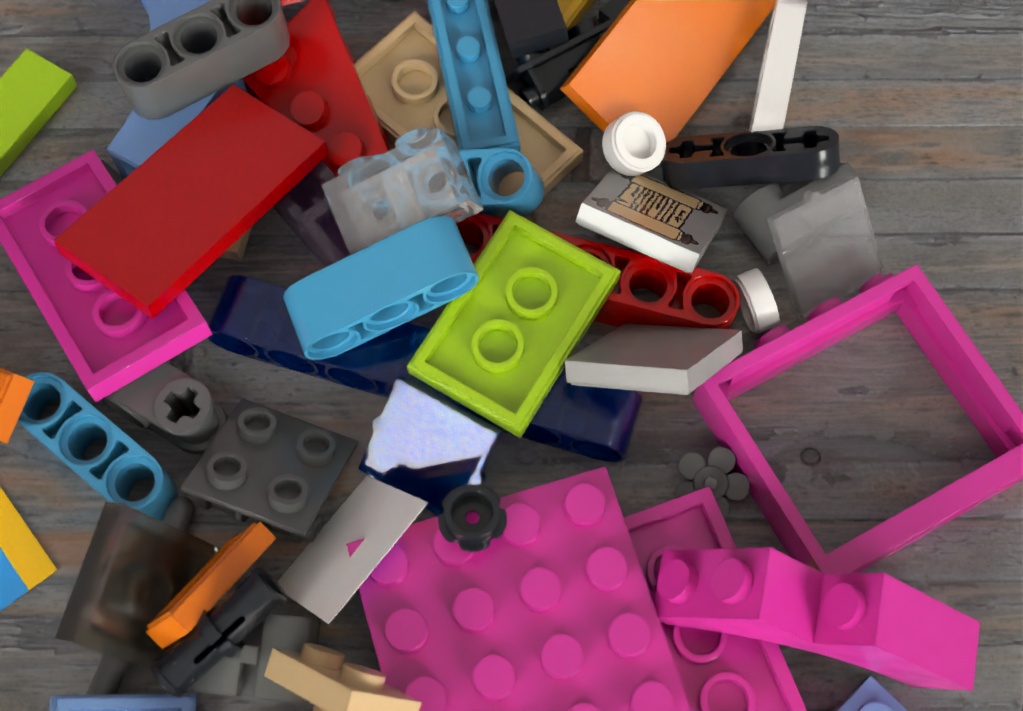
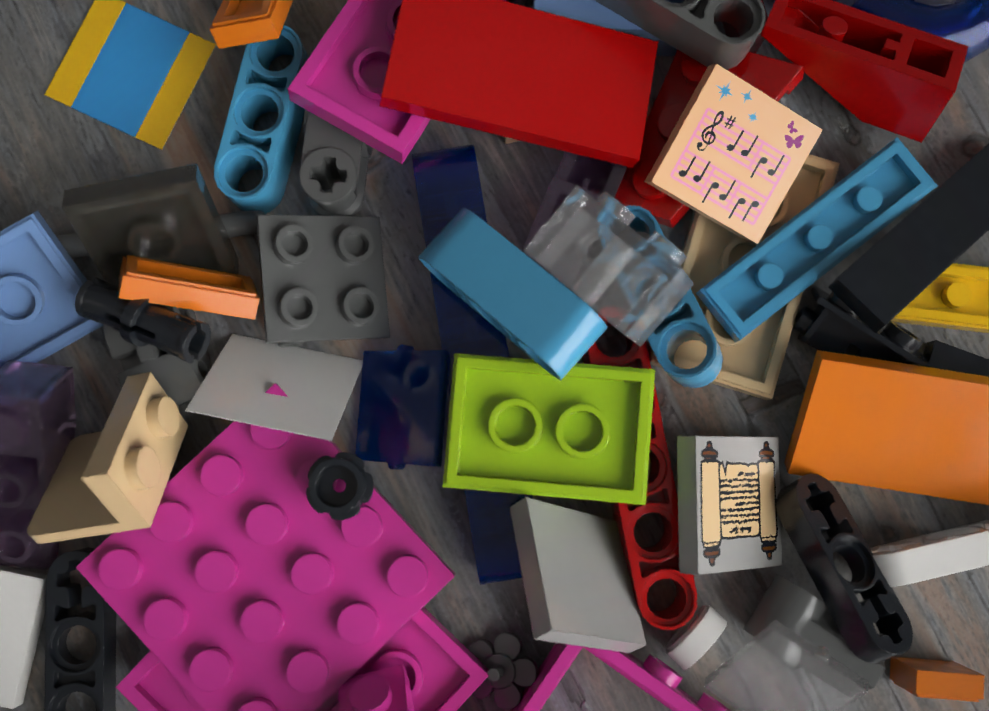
camera: 65 degrees right, 15 degrees up
(362, 75) = (733, 154): none -> light nougat tile
(634, 143) = (797, 448): white tile -> none
(875, 134) = (937, 679): none -> orange tile

